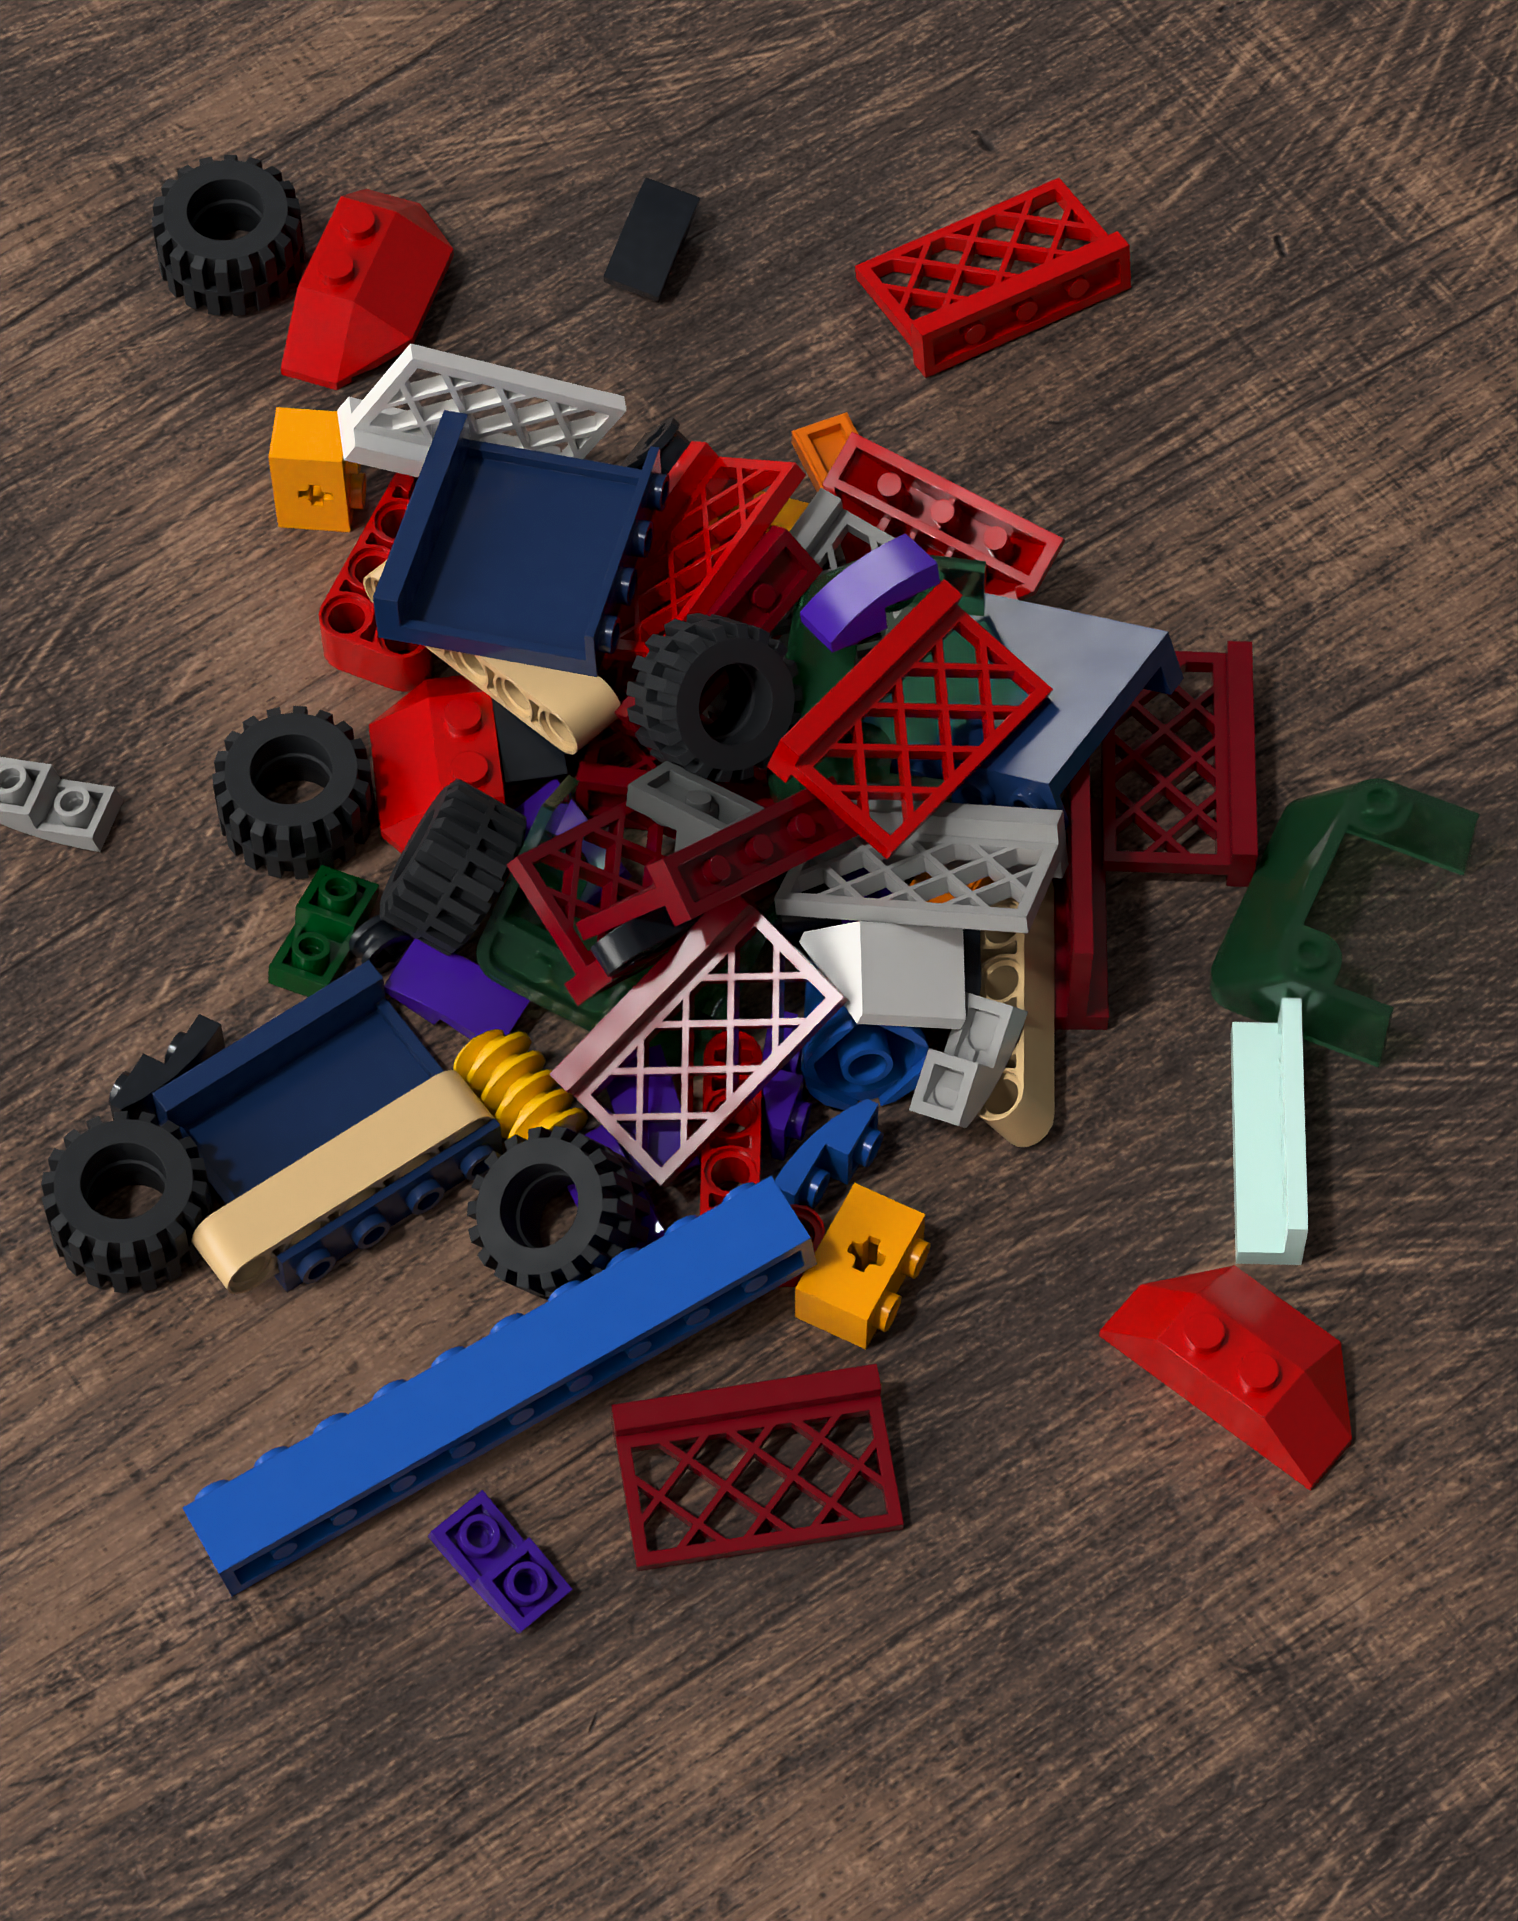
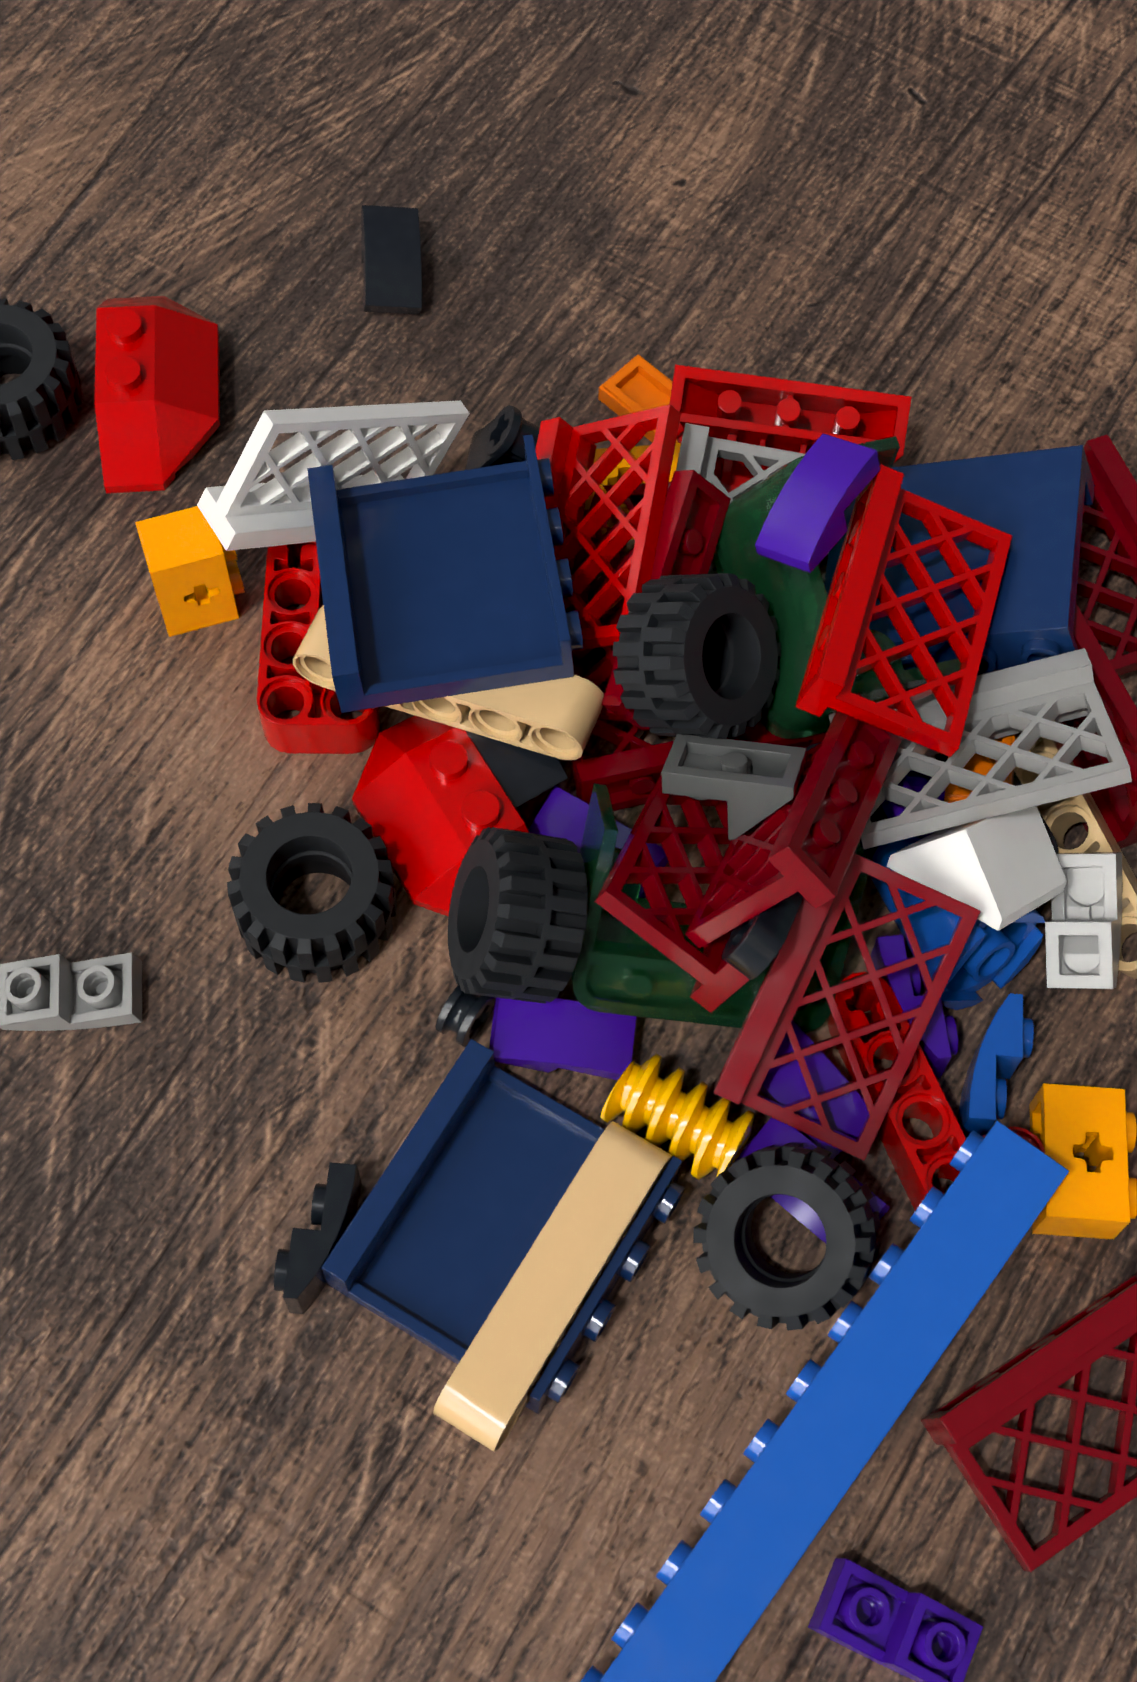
camera: 25 degrees left, 5 degrees up
(115, 1157) = (307, 1346): black tyre -> none
(324, 922) = (402, 1023): dark green slope -> none
(1013, 301) = (733, 209): red fence -> none

